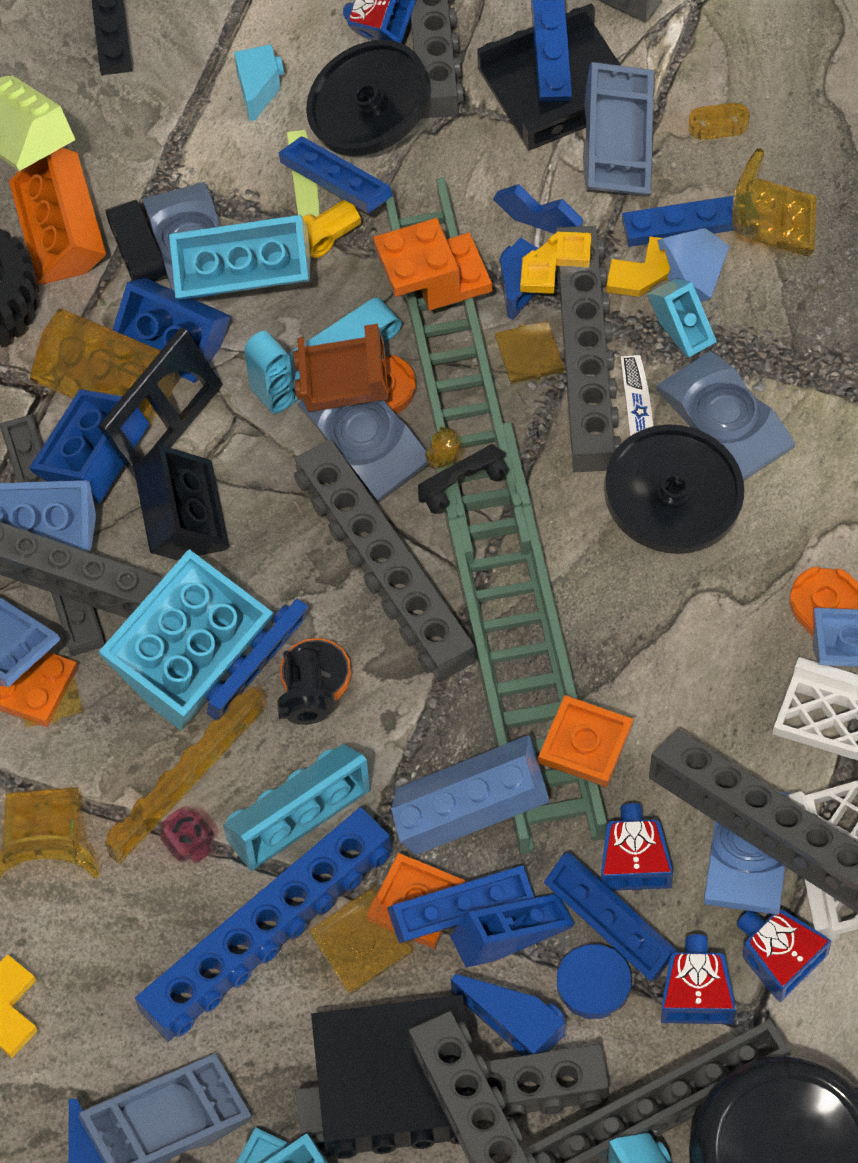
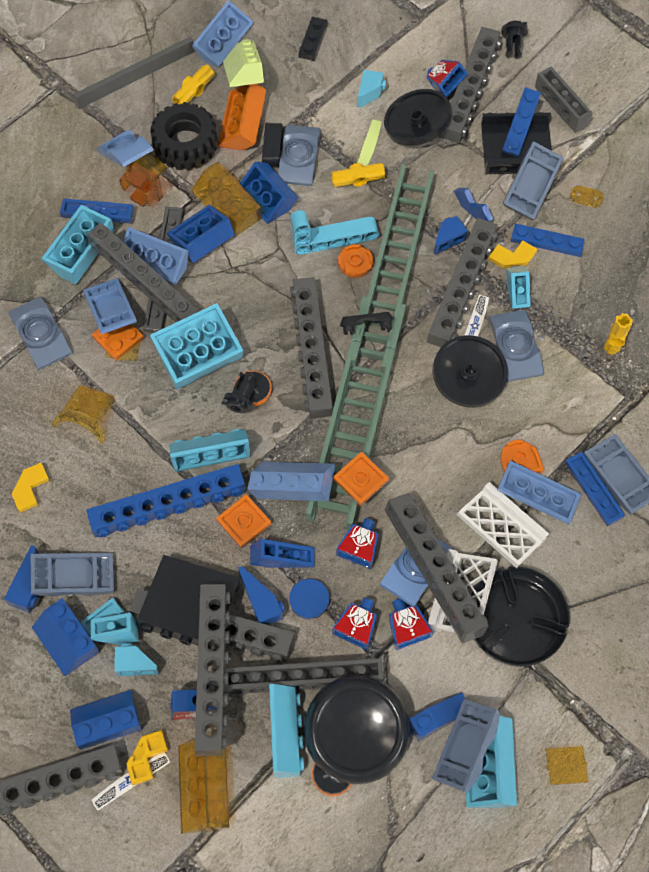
camera: 20 degrees right, 5 degrees up
(177, 355) = (260, 206): black window -> none
(177, 783) = (171, 409): clear yellow plate -> none
(180, 503) = (229, 279): black slope -> none
(187, 835) = (151, 441): clear pink head -> none
(240, 257) = (314, 170): medium azure slope -> none
(264, 649) = (219, 373): blue plate -> none
(335, 174) = (382, 148): blue plate -> none
(341, 371) = (335, 246): dark orange panel -> none
(360, 941) = (206, 529): clear yellow tile -> none
(372, 443) = (334, 281): sand blue slope -> none
(428, 262) = (400, 206): orange bracket -> none
(443, 449) = (364, 304): clear yellow plate -> none
(449, 906) = (255, 531): blue plate -> none
(529, 352) = (435, 274): clear yellow piece -> none
(560, 250) = (474, 229): yellow tile -> none
(610, 916) = (332, 570): blue plate -> none
(695, 258) = (539, 261): medium blue slope -> none
(773, 211) = (590, 253): clear yellow piece -> none

